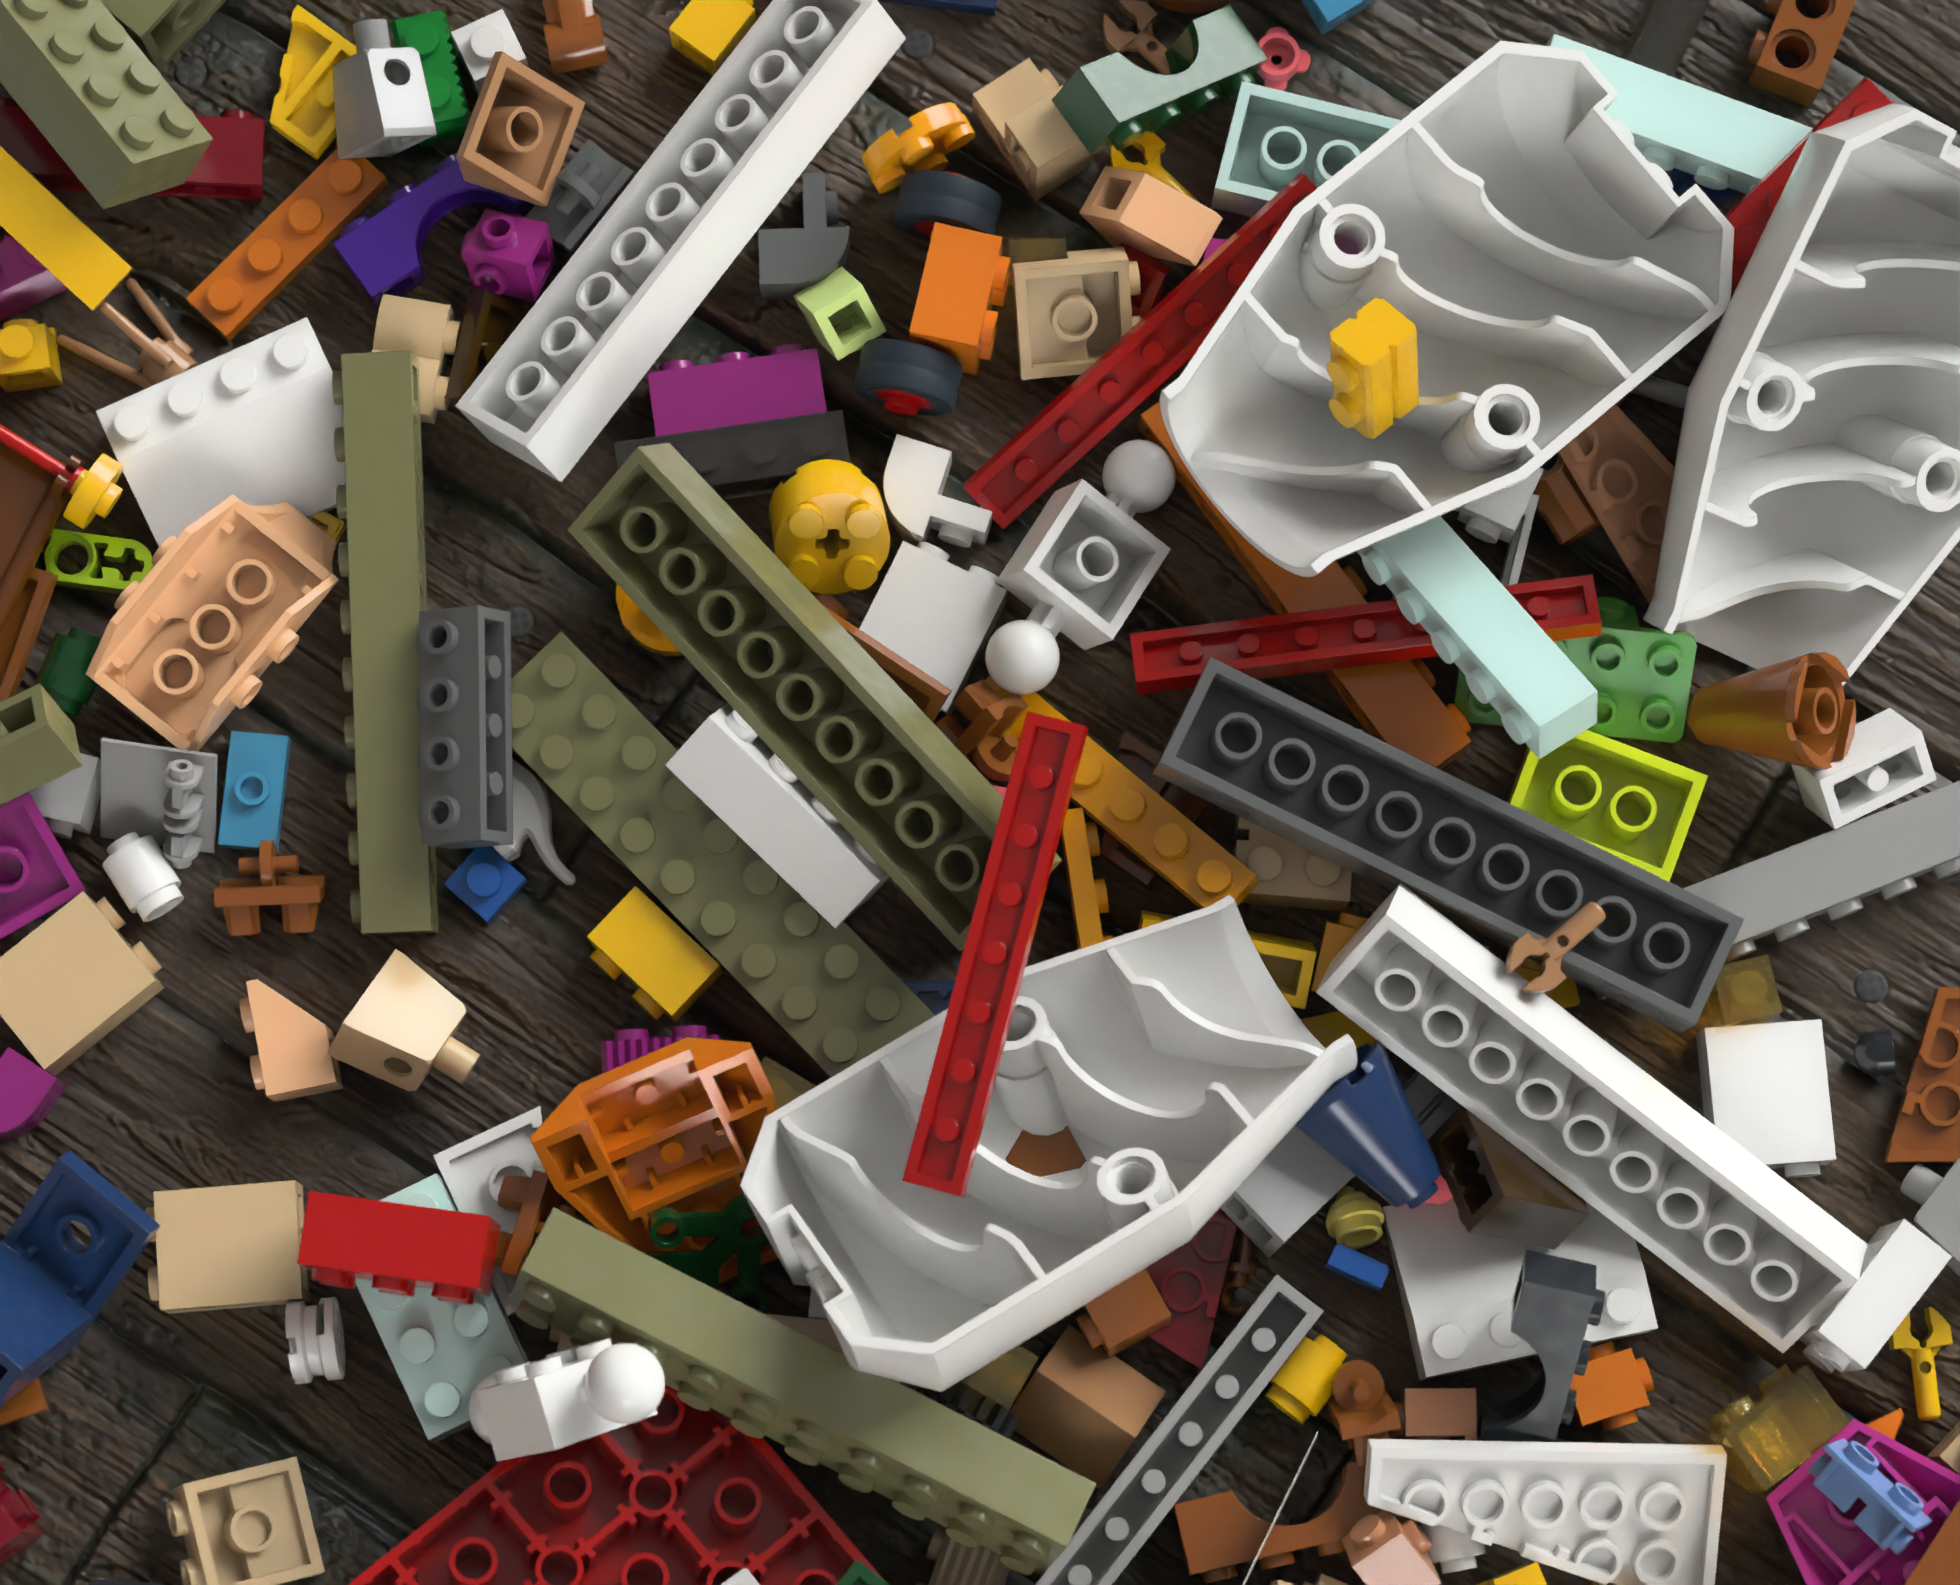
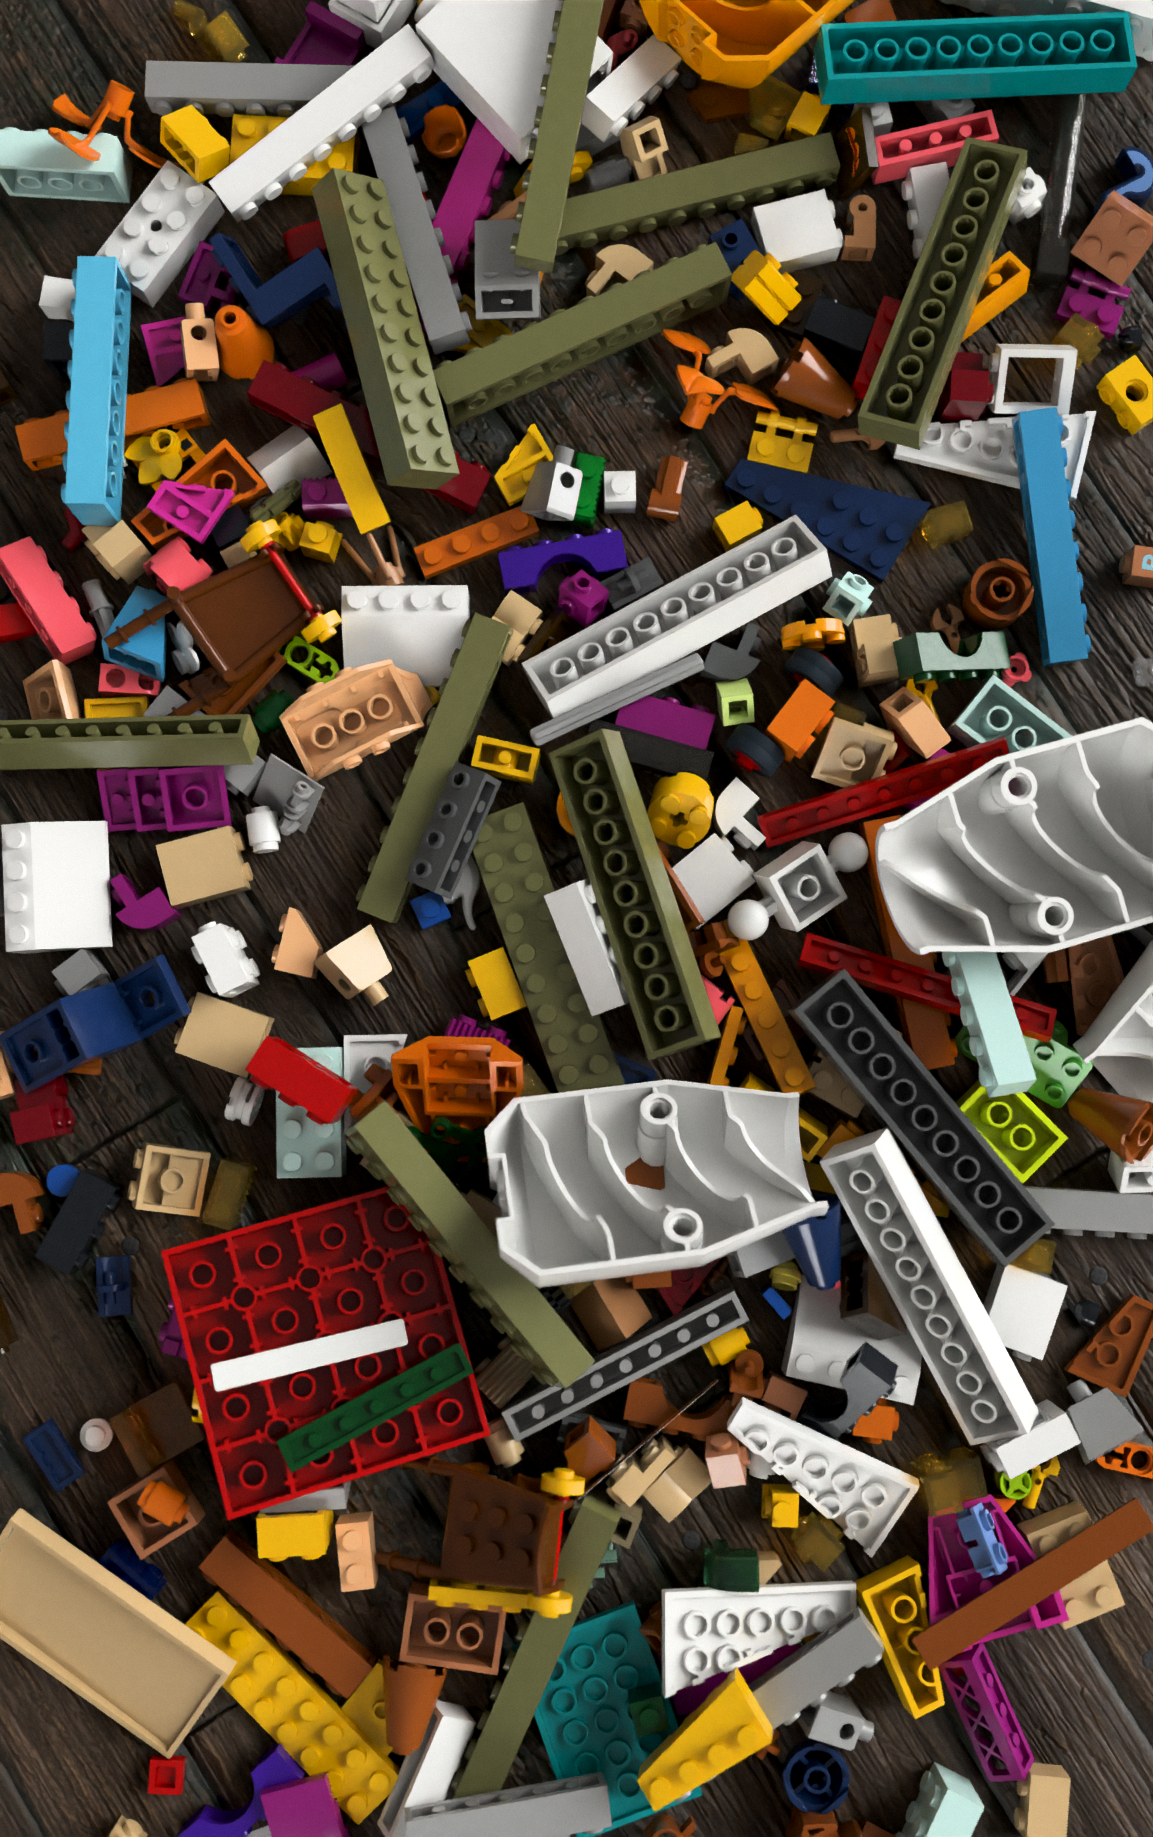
camera: 25 degrees right, 5 degrees up
(162, 1105) = (225, 960): none -> white brick
(244, 896) = (324, 862): dark orange hips -> none
(254, 790) = (337, 811): dark azure plate -> none
(356, 1506) = (228, 1193): none -> clear yellow brick
(503, 574) = (506, 759): none -> yellow brick
(518, 132) = (615, 537): medium nougat slope -> none
(565, 1398) = (348, 1199): white brick -> none
(641, 394) = (616, 699): none -> light grey axle
(949, 61) = (848, 597): none -> light aqua brick
(995, 954) = (665, 1074): red plate -> none
(1373, 368) = (998, 859): yellow brick -> none
(1554, 947) = (950, 1197): medium nougat bar -> none
(1894, 1384) = (1016, 1487): none -> lime wheel

